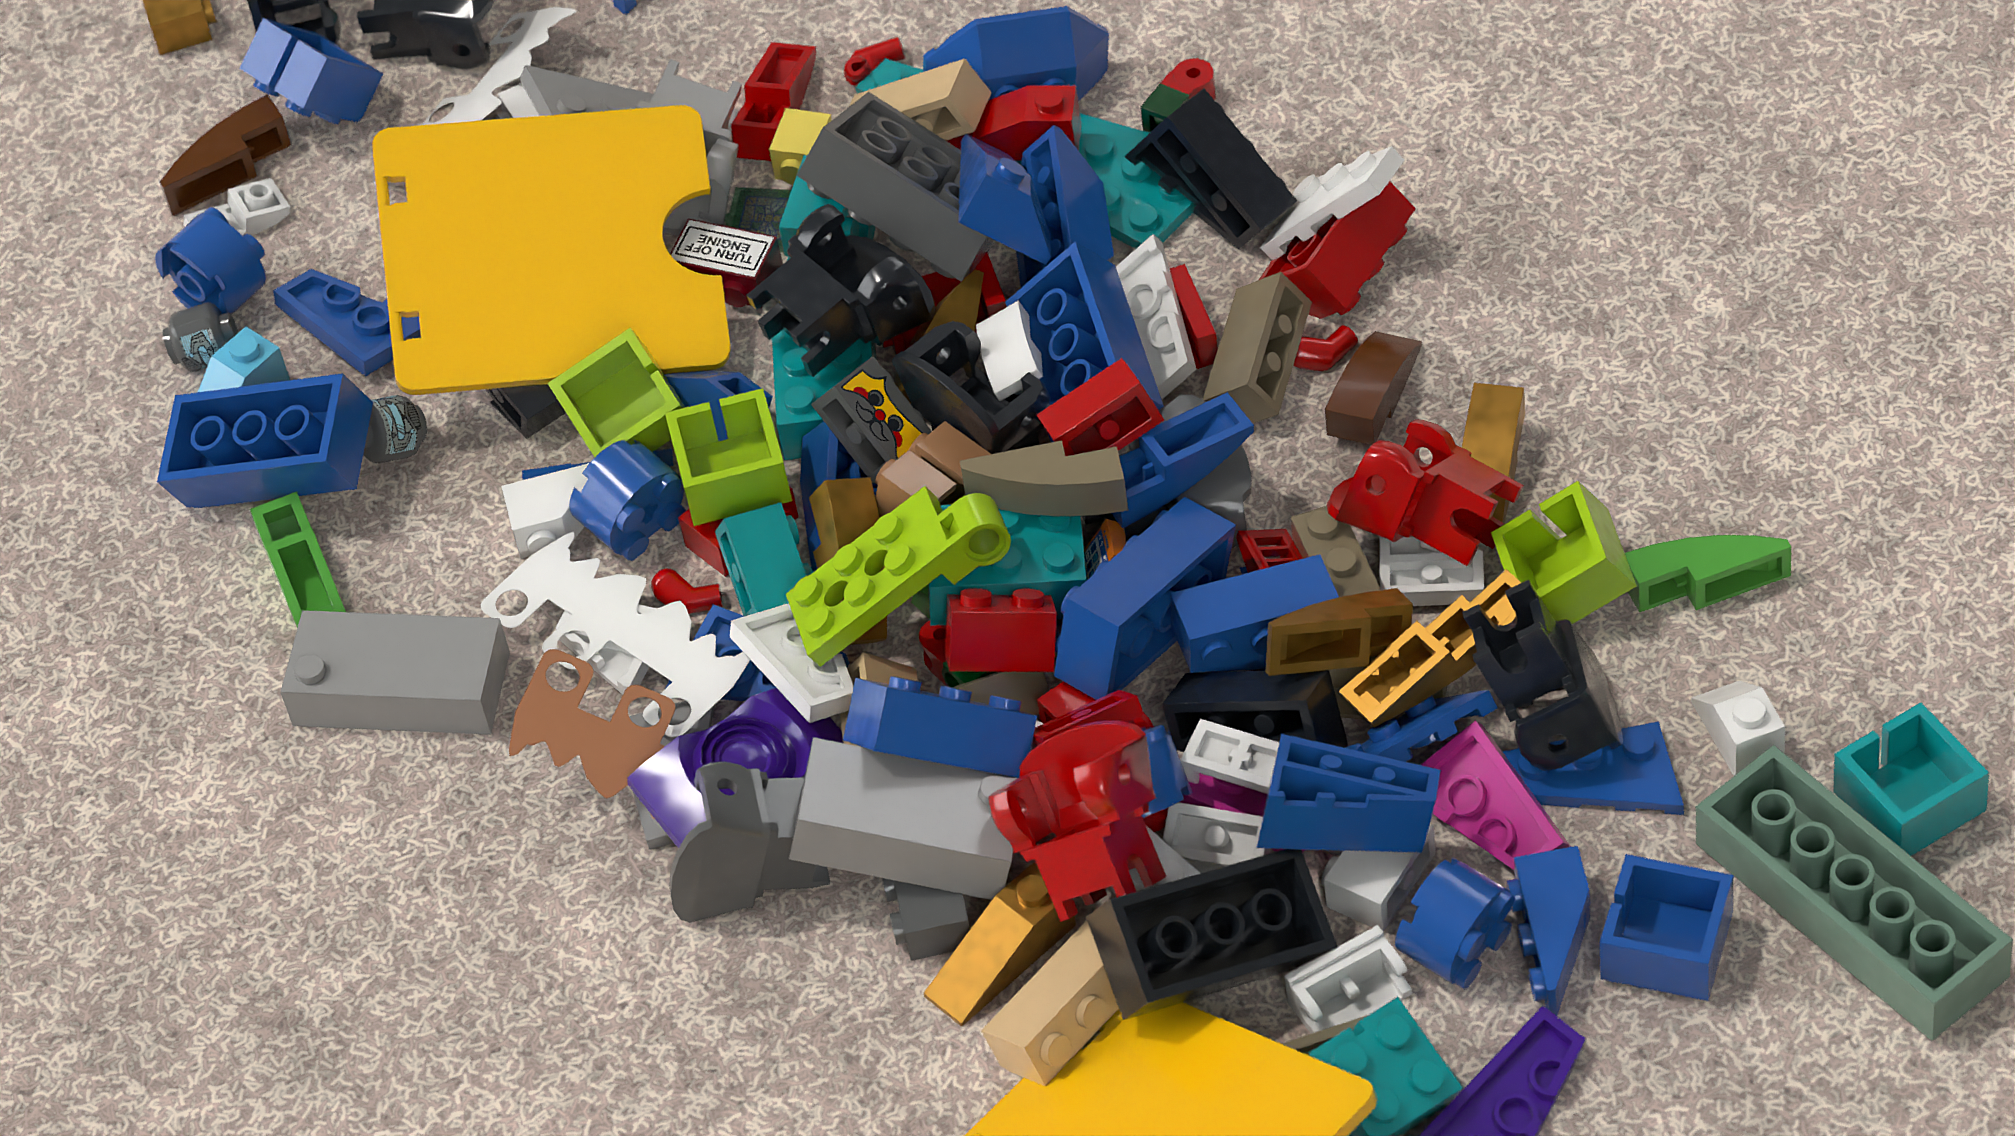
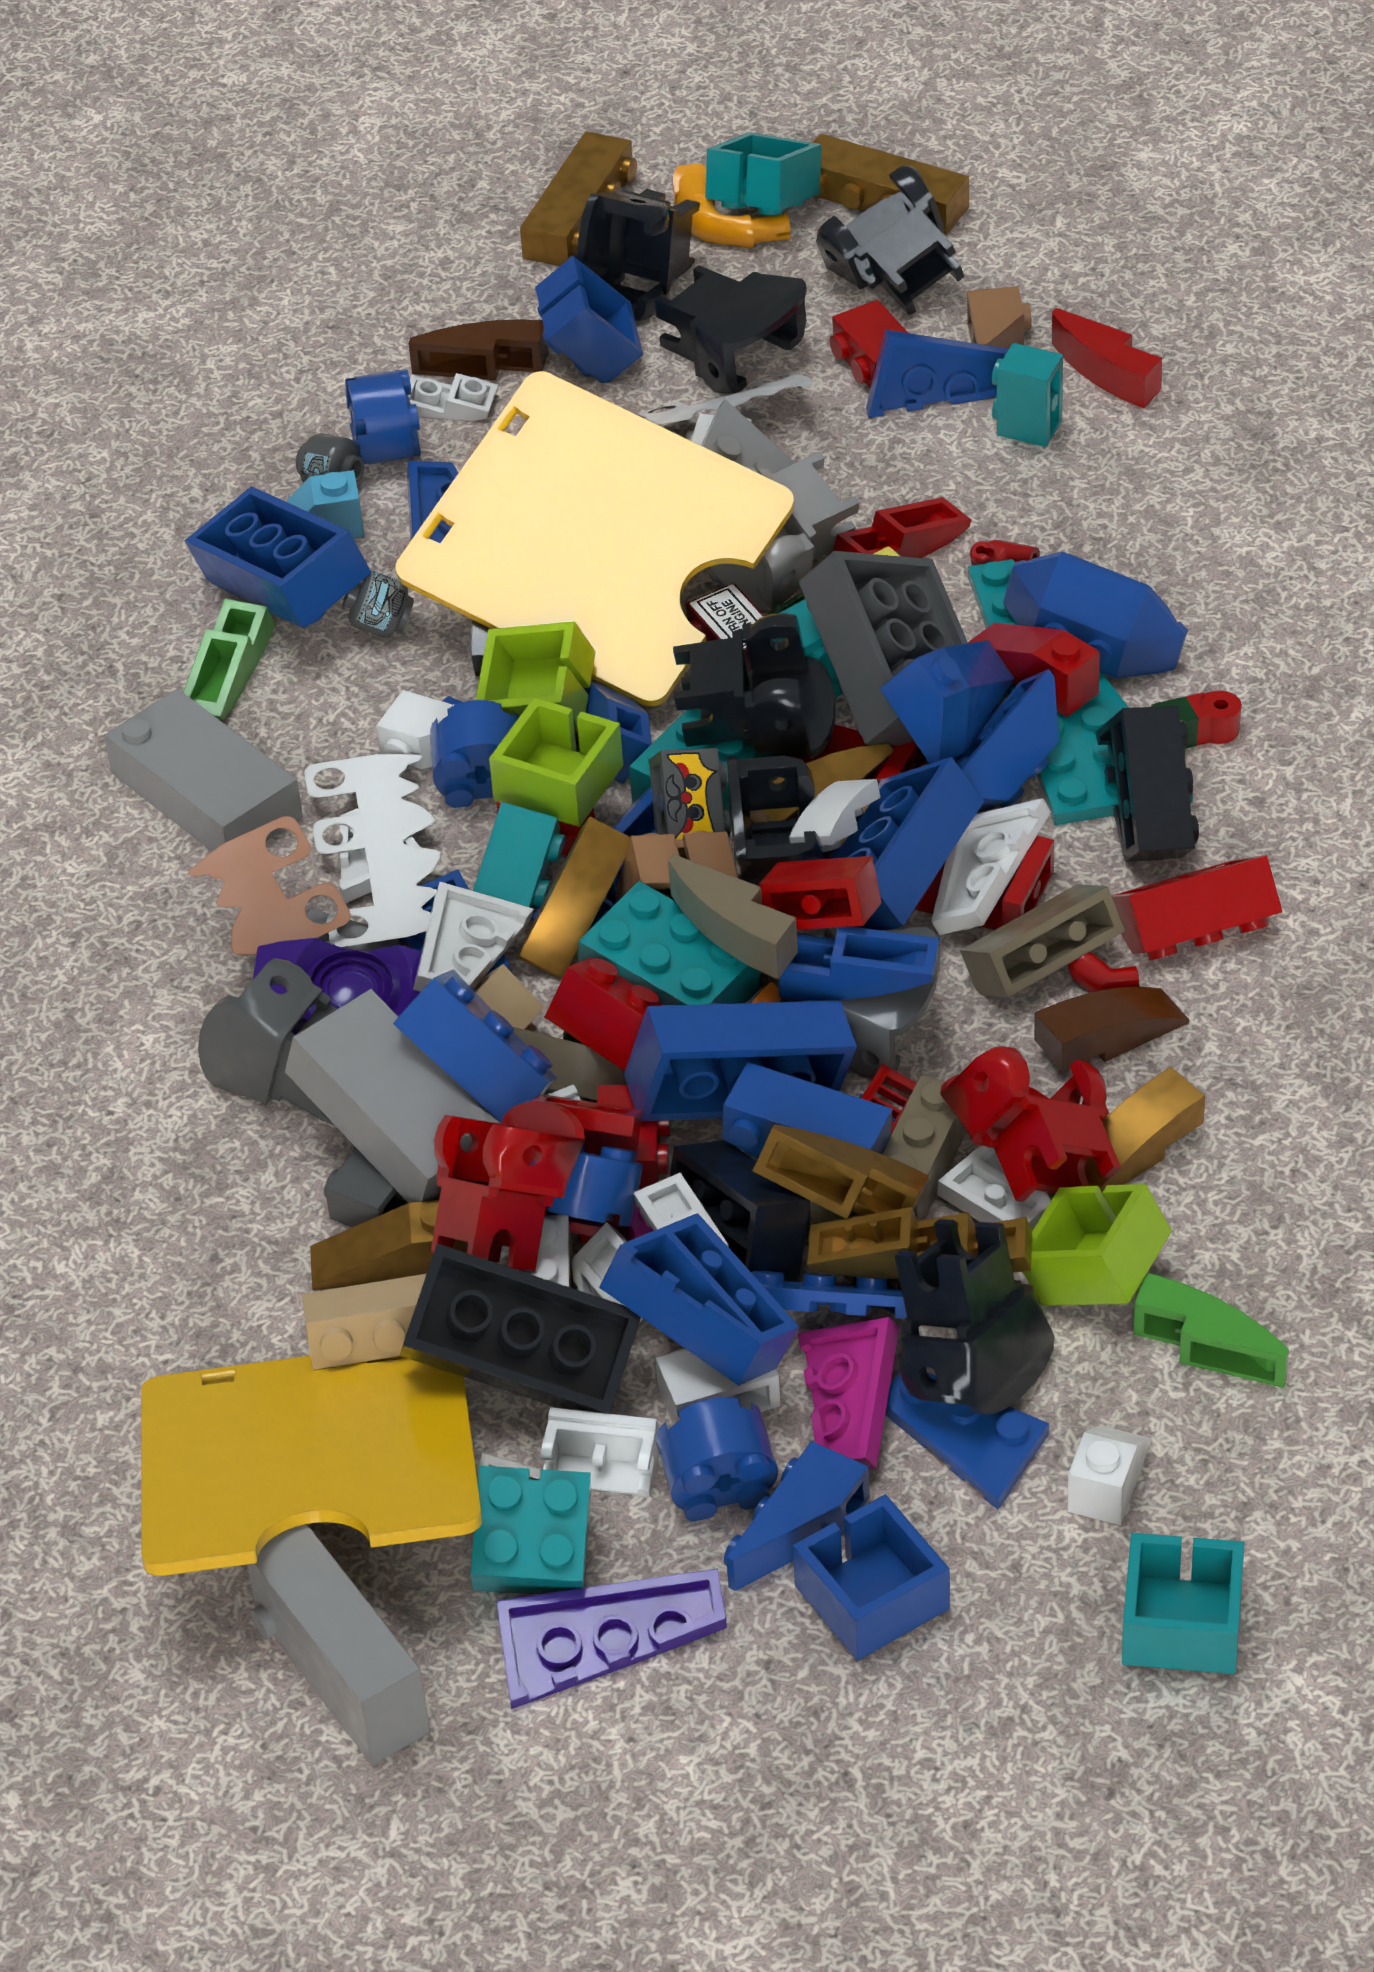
camera: 35 degrees right, 5 degrees down
(671, 587) = (453, 856): red arm -> none
(915, 547) = (606, 903): lime hinge -> none
(941, 99) = (989, 602): tan brick -> none
(1332, 194) = (1211, 855): white wing -> none
(1854, 892) = (1045, 1657): sand green brick -> none

